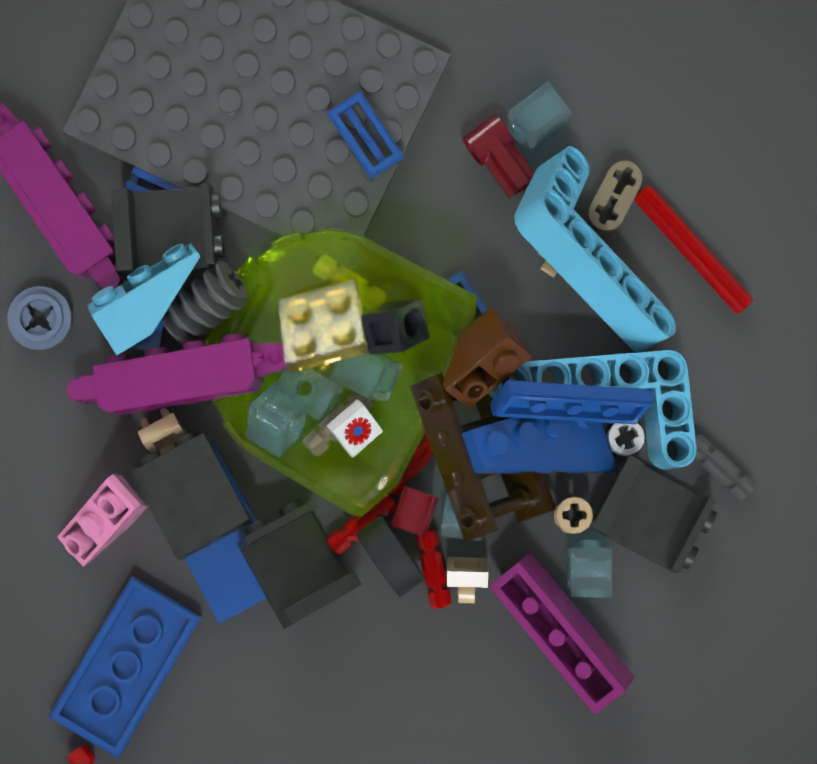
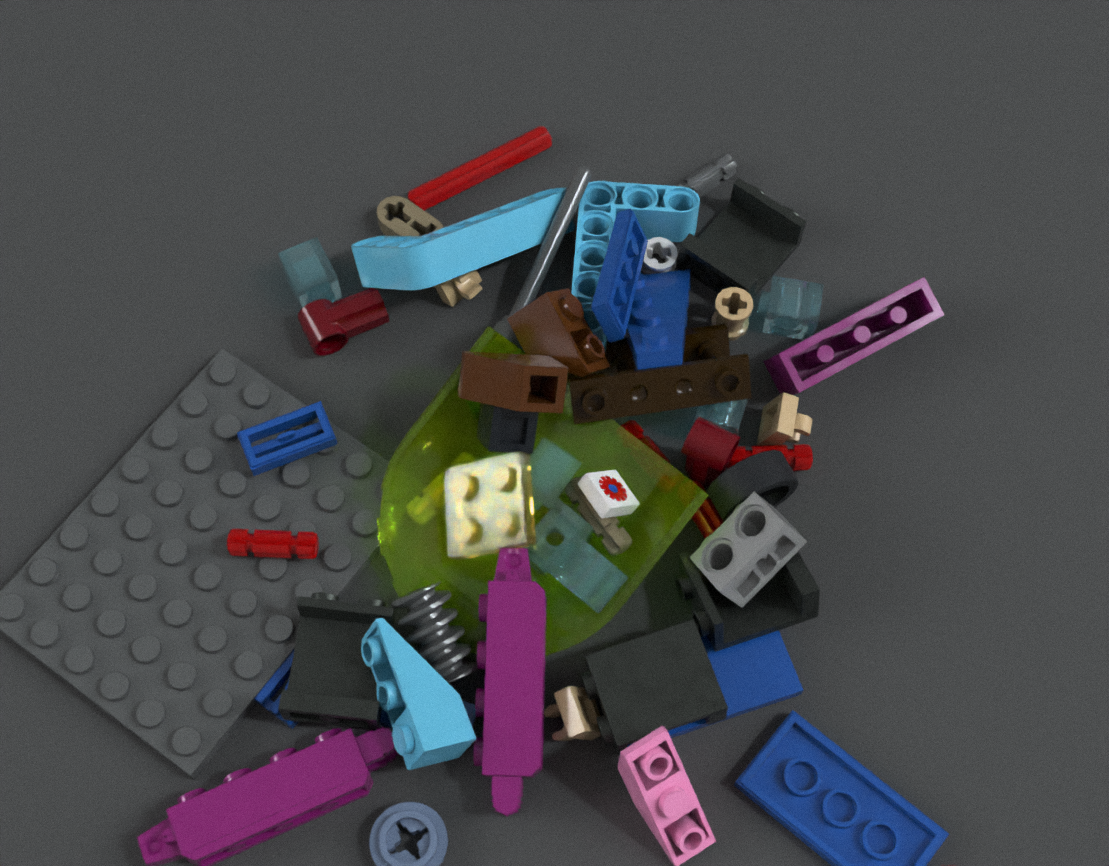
camera: 80 degrees left, 20 degrees down
(263, 148) = (273, 543): none -> red axle
(318, 562) = (751, 553): none -> light grey brick
(421, 325) = (513, 381): none -> reddish brown slope
(521, 313) = (548, 249): none -> dark grey piece

